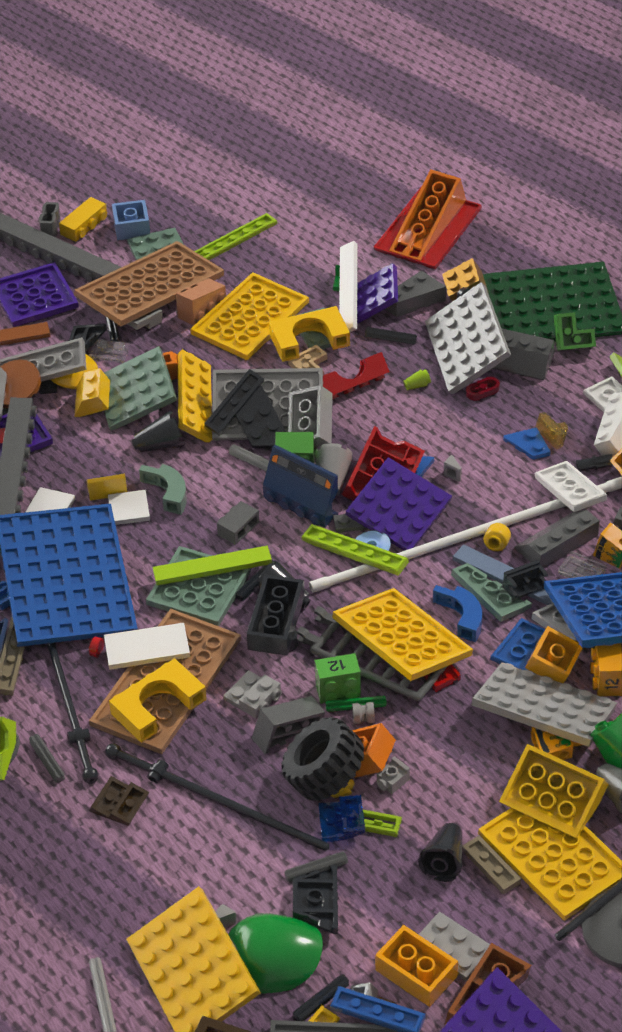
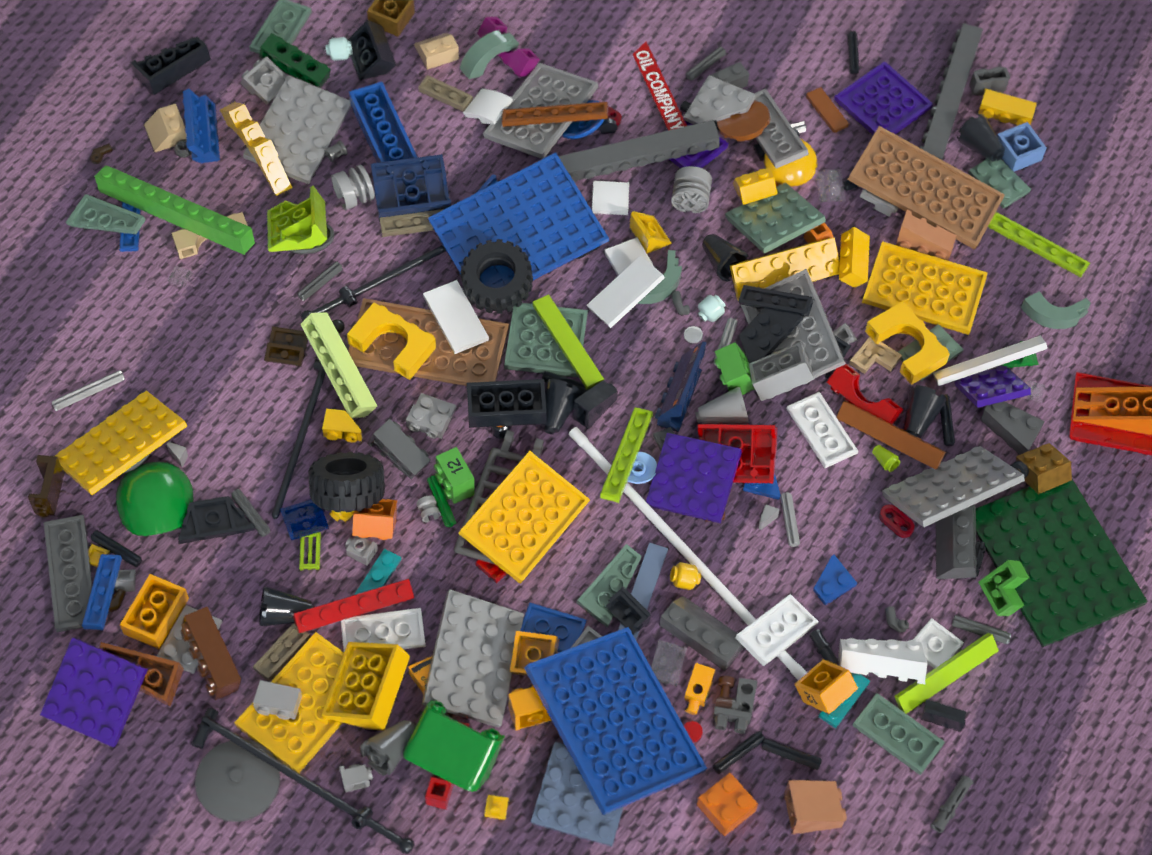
camera: 70 degrees right, 15 degrees up
(76, 438) = (691, 189): none -> light grey wheel
(89, 333) = (836, 158): black wing -> none
(96, 646) = (447, 278): red tile -> none
(114, 237) = (981, 138): none -> black cone
(125, 575) = (490, 255): none -> black tyre
(170, 749) = (338, 365): none -> yellowish green brick
(173, 509) = (625, 291): none -> white tile
(201, 481) = (677, 301): none -> dark grey arm
(202, 348) = (854, 257): none -> yellow brick
(214, 457) = (711, 308): none -> light aqua head
(234, 480) = (693, 334): none -> white piece
(237, 522) = (633, 349): dark grey brick -> none
(239, 767) = (340, 425): none -> yellow slope
(293, 558) = (594, 403): none -> black slope
(310, 248) = (1051, 316): none -> sand green arch
(365, 416) = (822, 430): none -> white tile
(378, 339) = (922, 409): none -> black cone
(398, 368) = (890, 435): none -> dark orange tile
(428, 771) = (380, 571): none -> teal plate
(459, 456) = (790, 519): none -> light grey axle
(459, 791) = (353, 606): none -> red plate
(466, 605) = (574, 574): blue arch -> none
(487, 912) = (211, 653): none -> reddish brown brick
(488, 776) = (393, 627): none -> white tile
(552, 431) = (856, 598): clear yellow tile -> none
(553, 867) = (277, 700): none -> light grey brick
(562, 947) = (203, 731): none -> black axle
(581, 414) = (895, 623): none -> dark grey arm
(601, 364) = (980, 629): none -> dark grey axle

